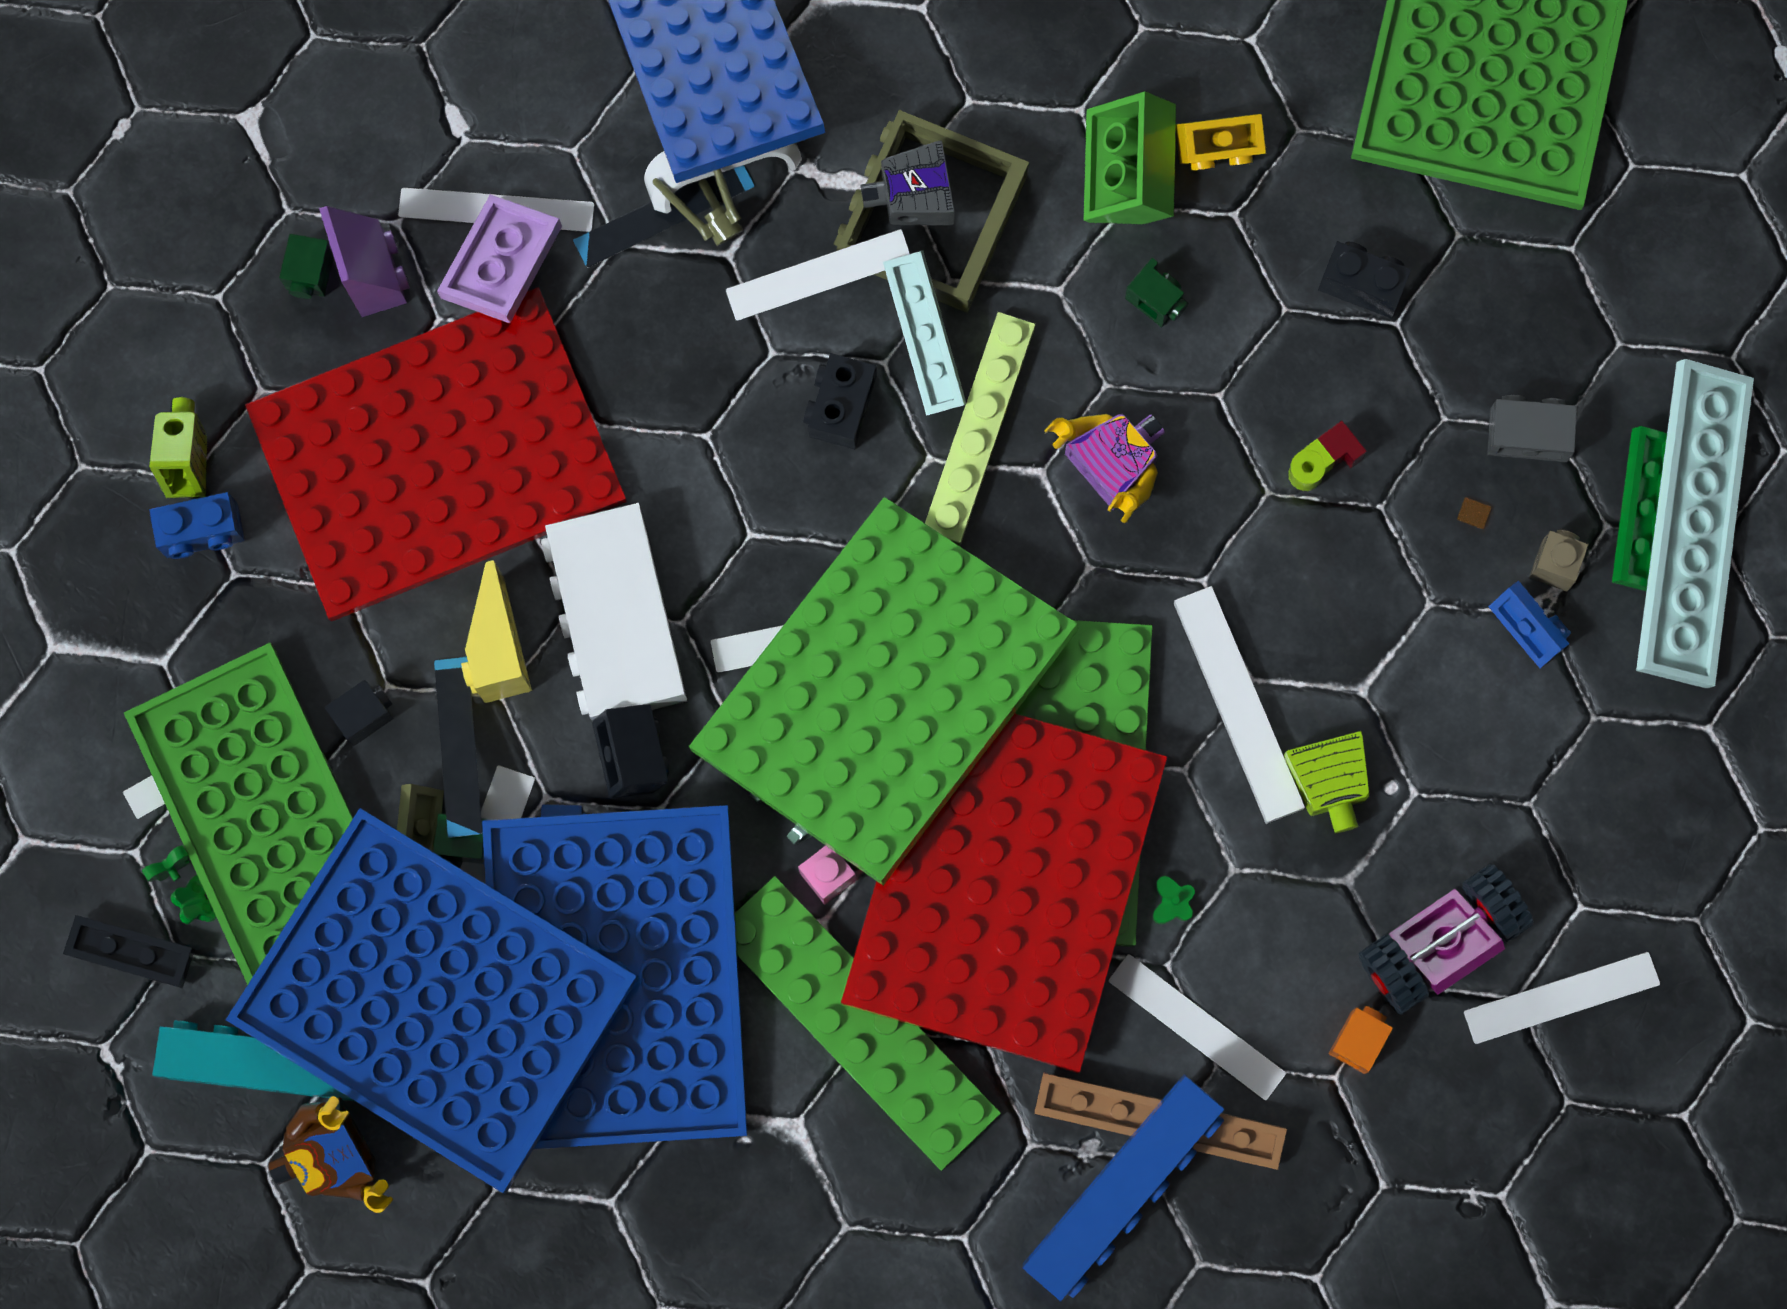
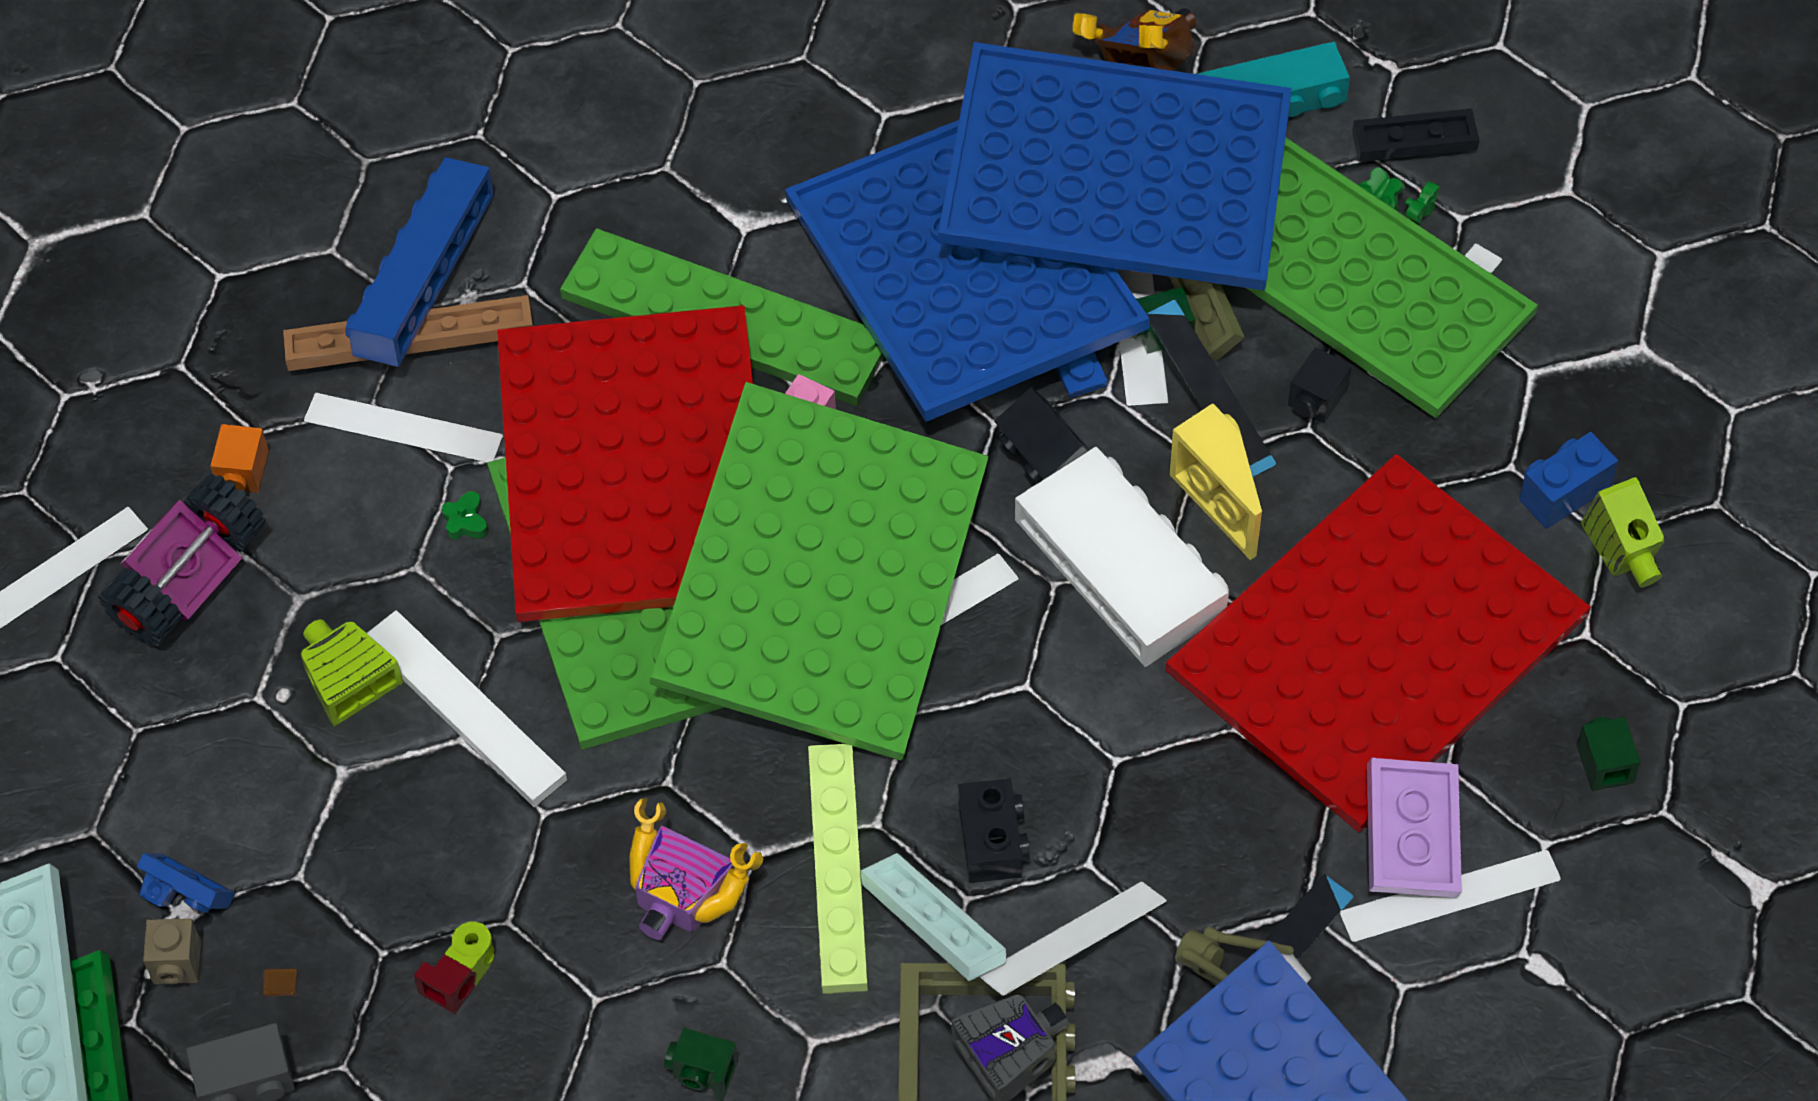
camera: 155 degrees right, 20 degrees down
(365, 260) = (1550, 756): medium lavender slope -> none

